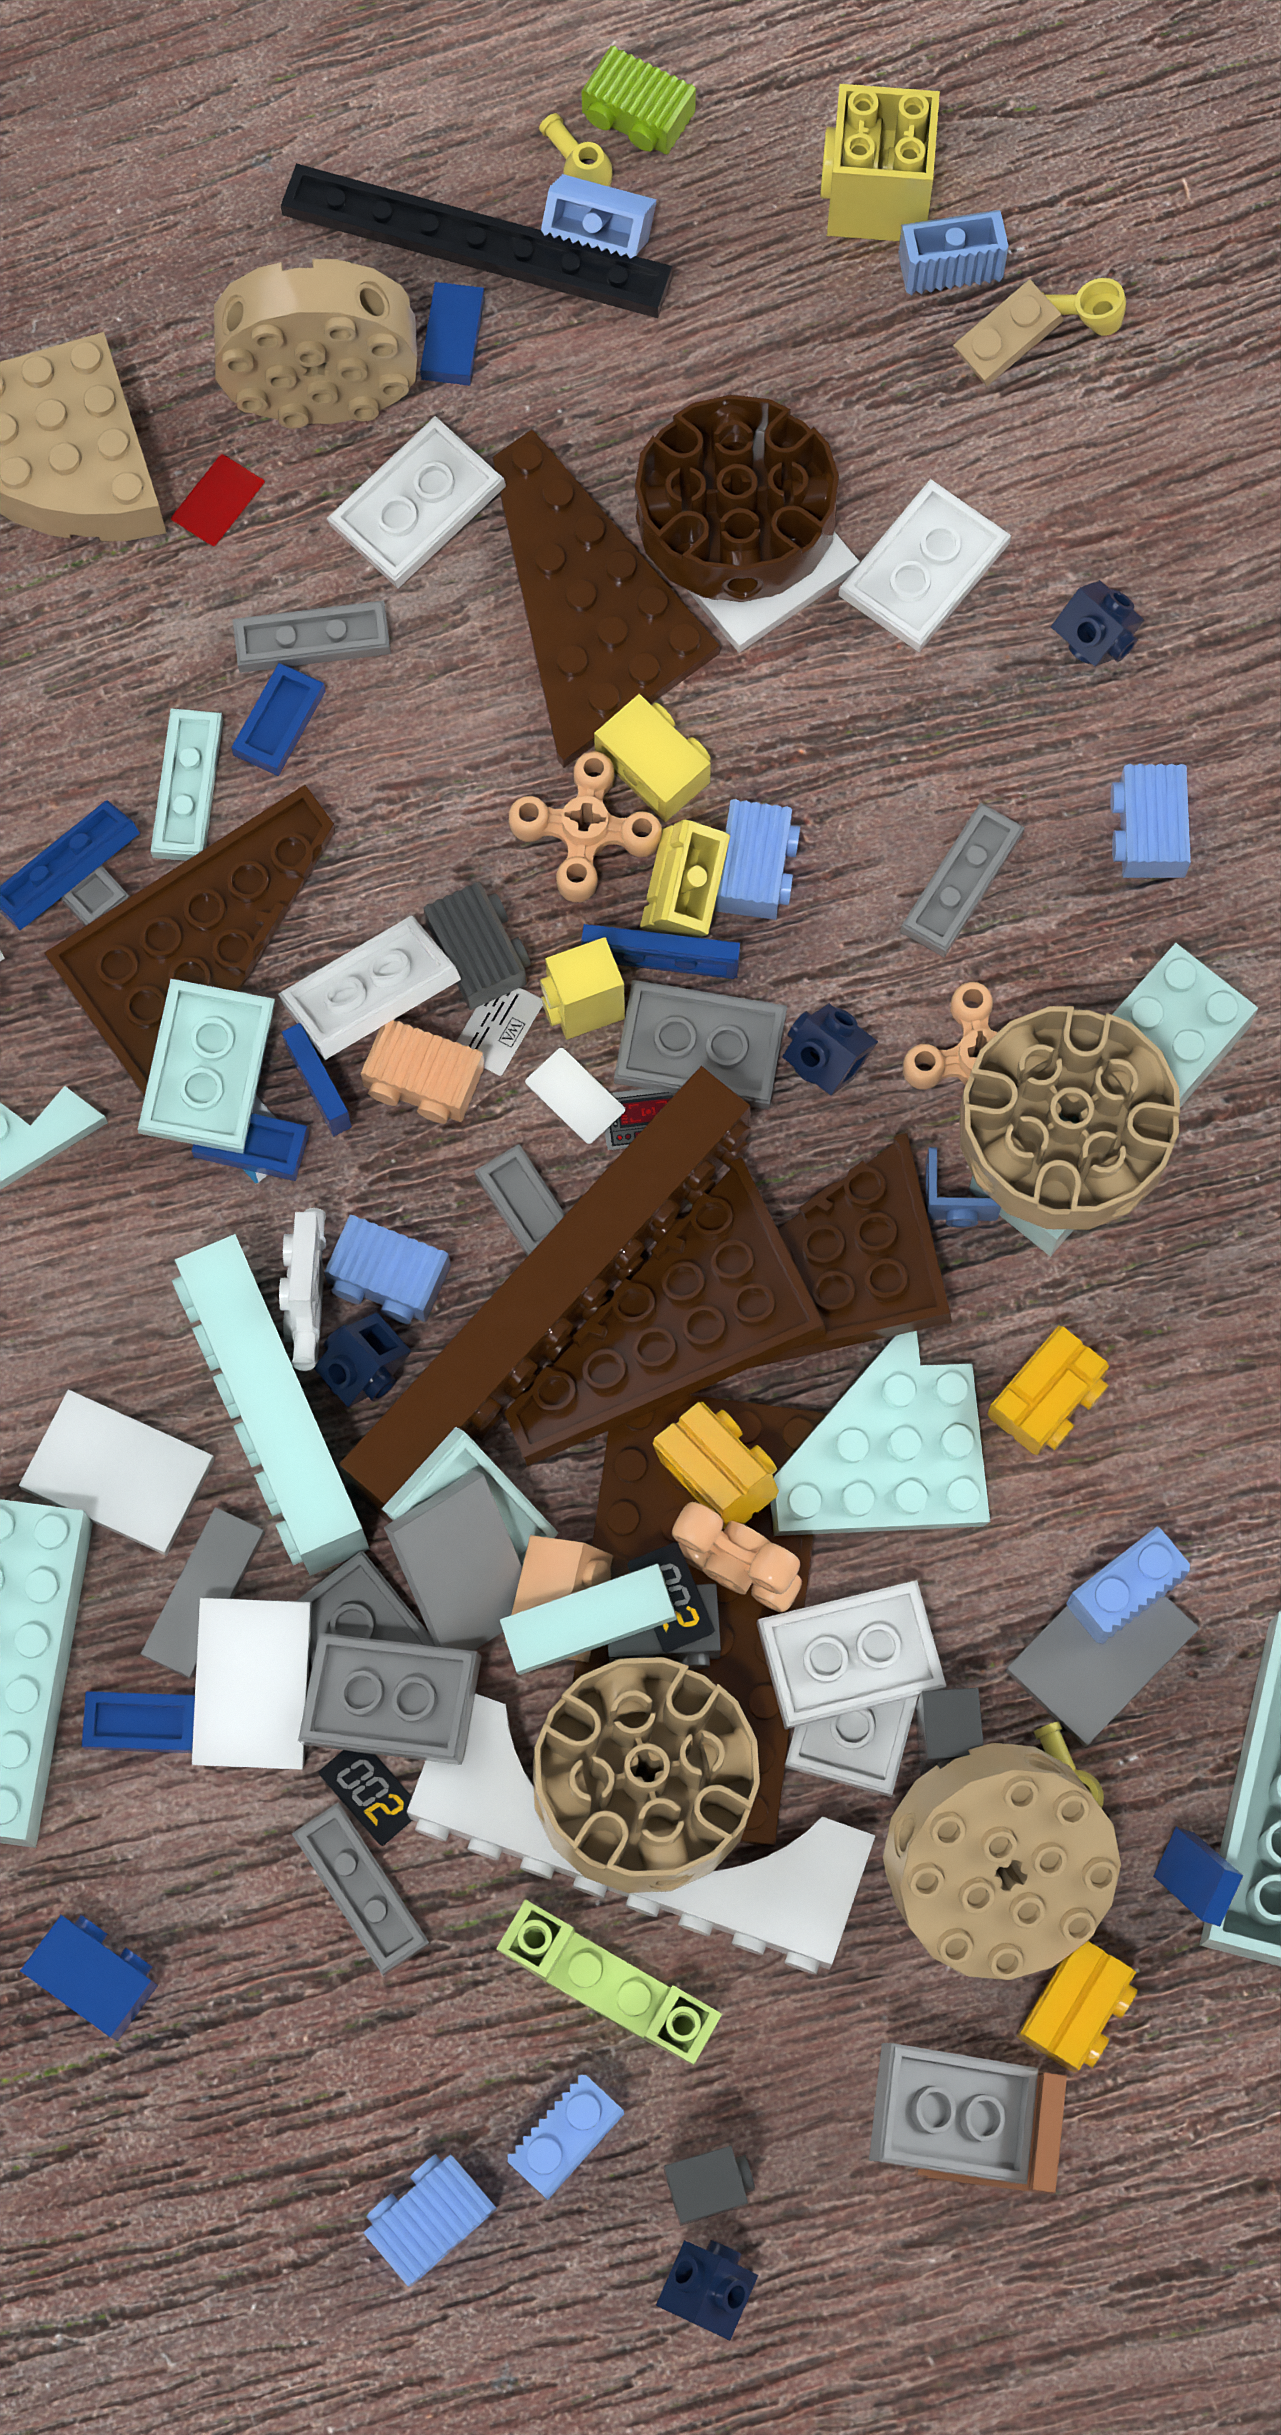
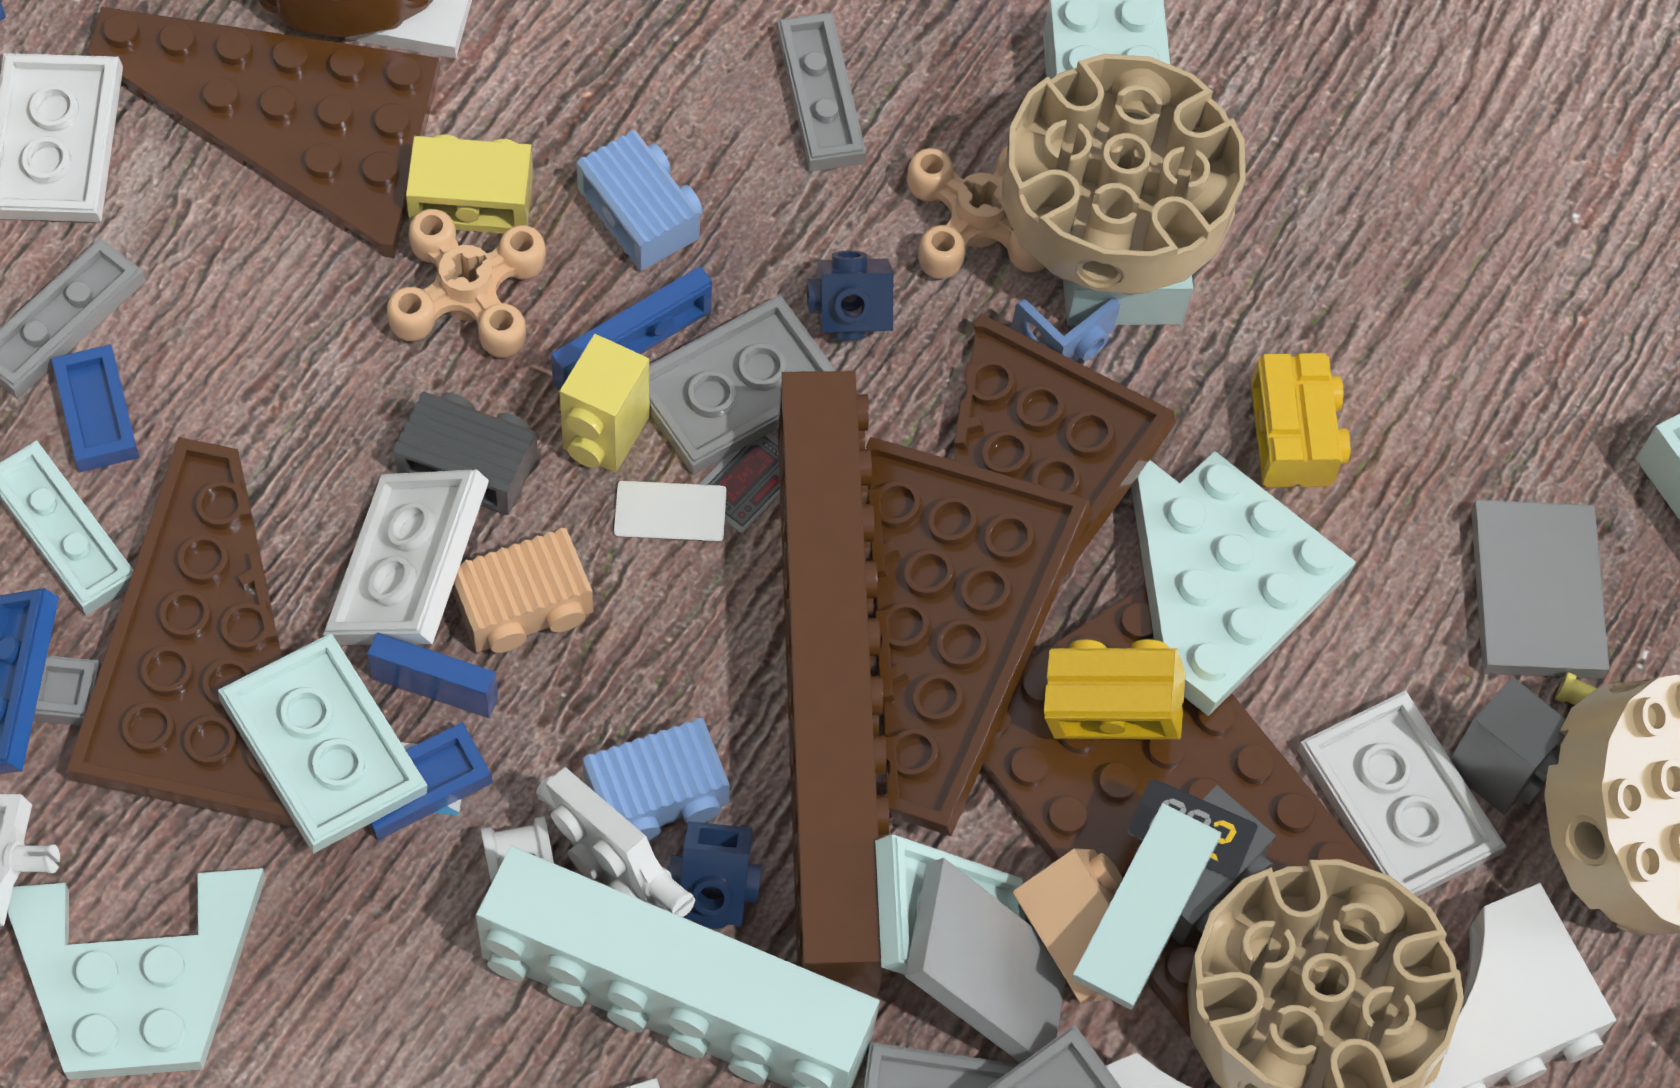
camera: 50 degrees left, 10 degrees down
(261, 1237) = (529, 838): none -> white bush
(500, 1027) = (549, 503): white sticker -> none
(520, 1197) = (716, 631): light grey tile -> none
(685, 880) = (600, 253): light yellow brick -> none
(737, 1557) = (1216, 743): light nougat gear -> none
(850, 1654) = (1364, 759): white tile -> none
(1128, 1585) = (1521, 510): light blue brick -> none

